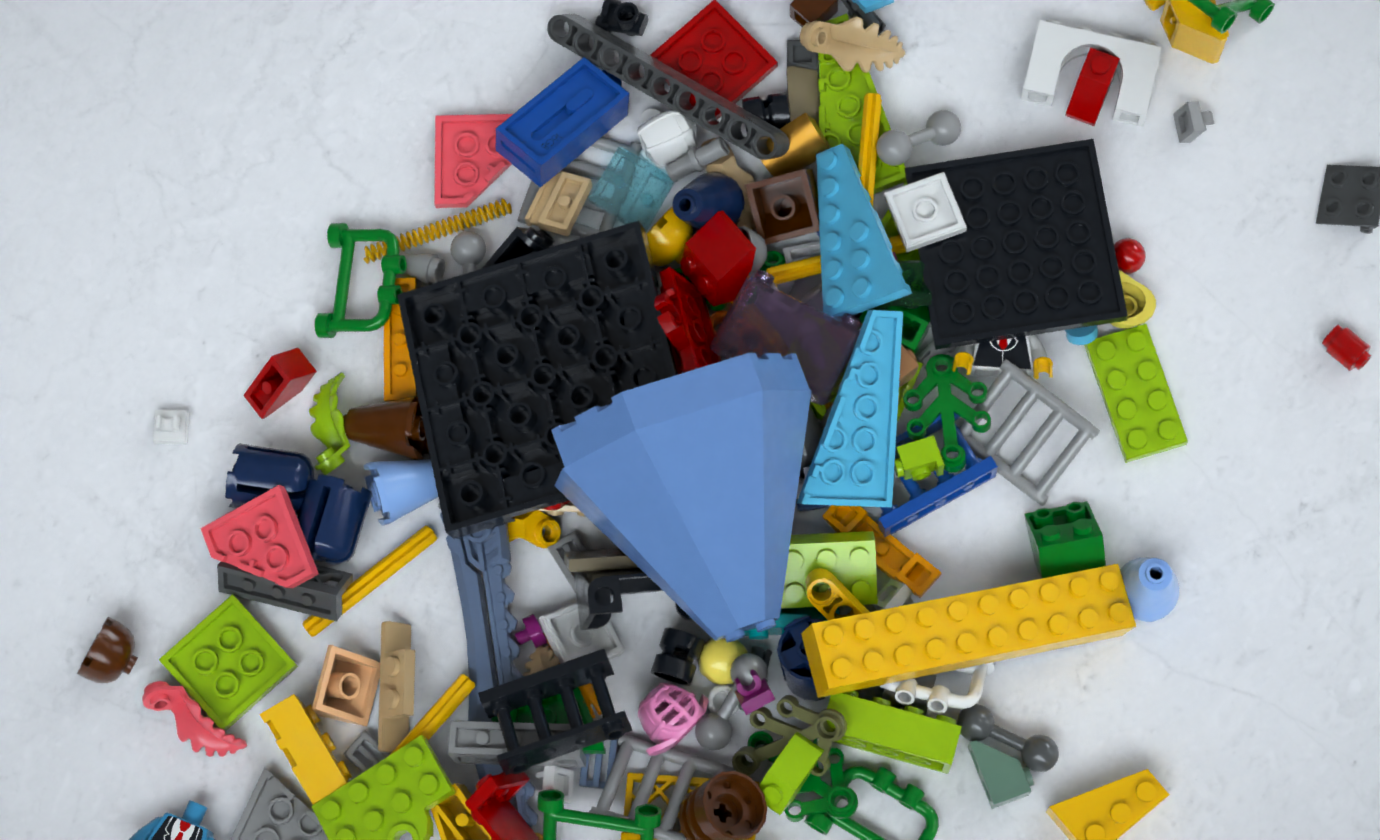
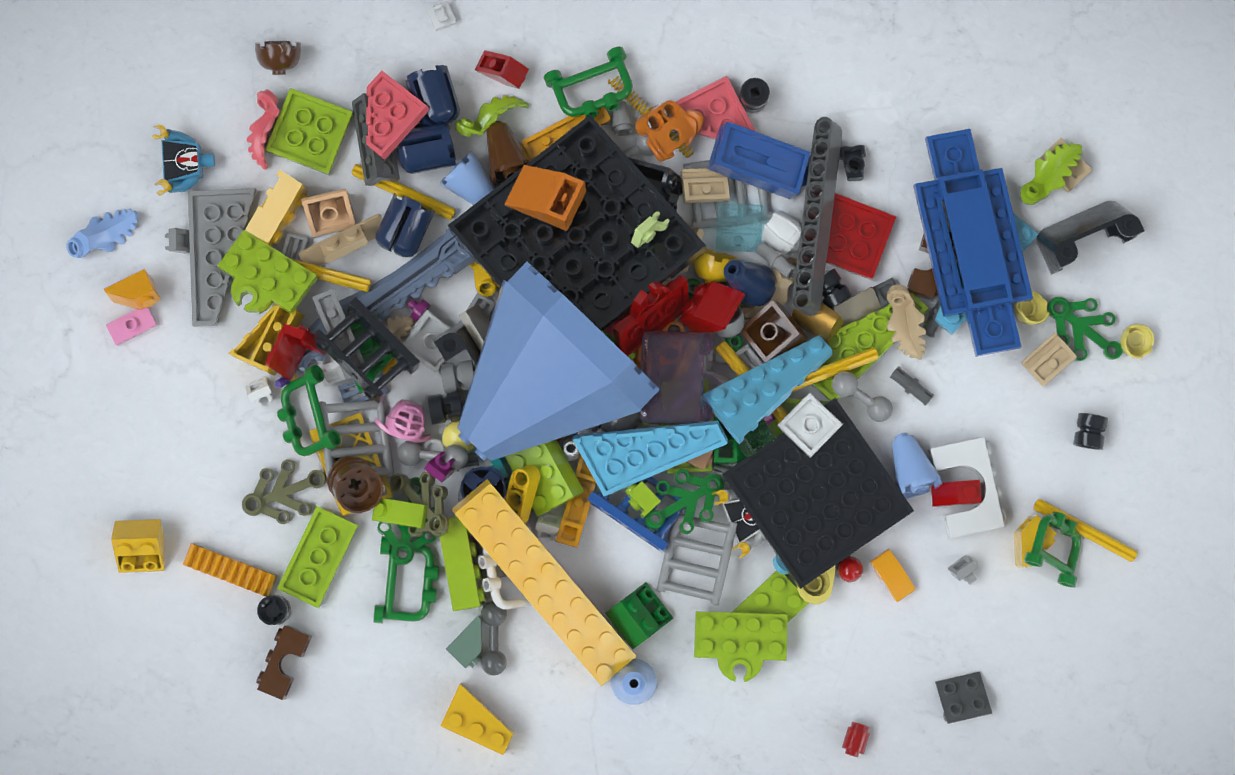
camera: 60 degrees right, 10 degrees up
(403, 607) = (403, 226): none -> dark blue cylinder
(450, 211) = (686, 123): none -> orange piece
(473, 386) = (547, 195): none -> orange slope
(477, 92) = (754, 95): none -> black wheel
(584, 278) = (646, 231): none -> yellowish green plate
(645, 620) = (457, 375): none -> light grey wheel
(802, 527) = (570, 456): none -> white cone
(932, 78) = (911, 385): none -> dark grey pin
(1034, 120) = (912, 467): none -> light blue cone
(1156, 427) = (740, 640): none -> lime plate
(1159, 207) = (892, 575): none -> light orange slope

